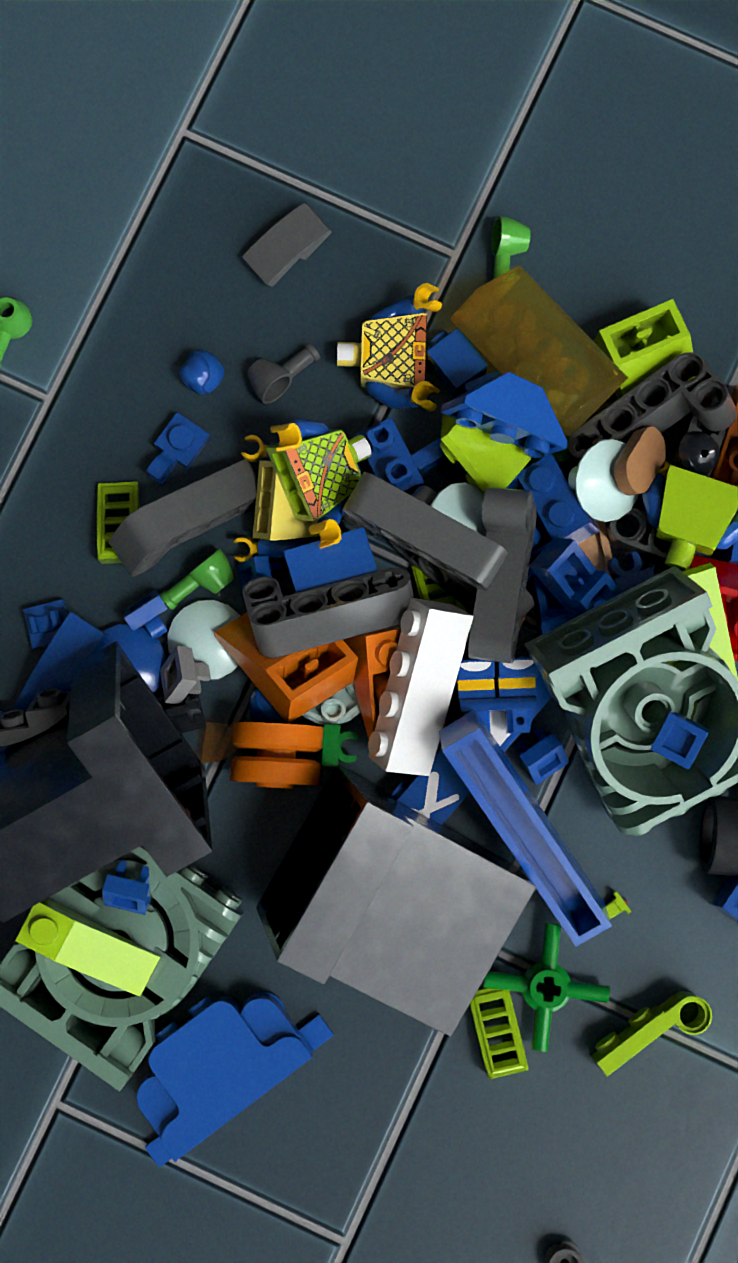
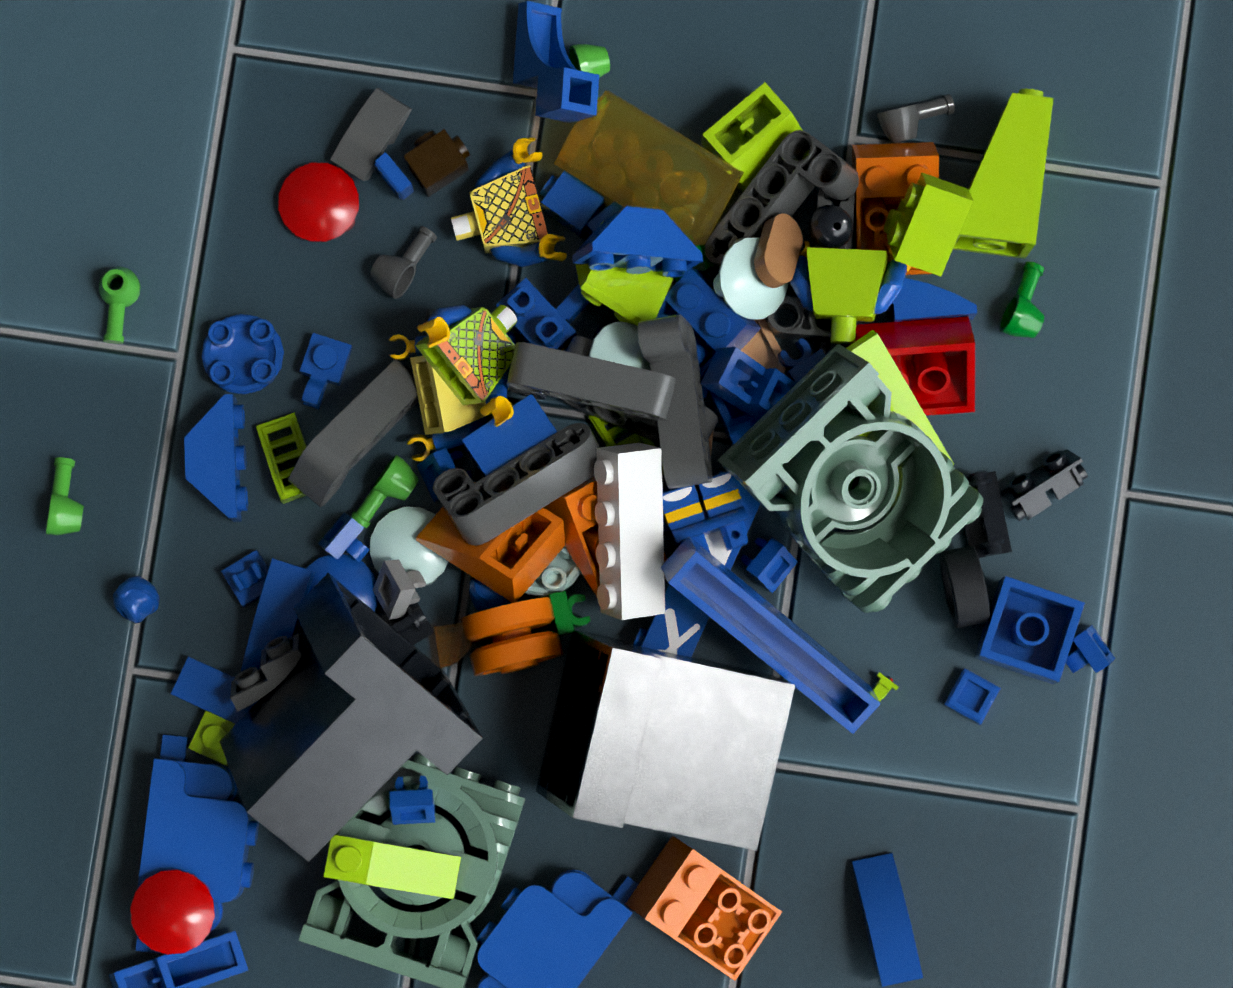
camera: 15 degrees left, 0 degrees up
(51, 501) = (216, 458): none -> blue slope
(105, 412) = (242, 353): none -> blue dish
(202, 372) = (325, 286): blue piece -> none
(219, 293) = (318, 202): none -> red dish
(296, 289) = (393, 176): none -> blue tile
(341, 286) = (437, 160): none -> dark brown brick
(381, 1069) = (703, 908): none -> orange slope
(466, 224) = (544, 64): none -> blue arch
(508, 1066) = (819, 870): lime slope -> none
(555, 1136) = (887, 920): none -> blue slope
(556, 999) = (845, 768): green bar -> none
(646, 1027) = (943, 792): lime plate -> none
(680, 739) = (892, 507): blue tile -> none
(698, 940) = (971, 696): none -> blue tile

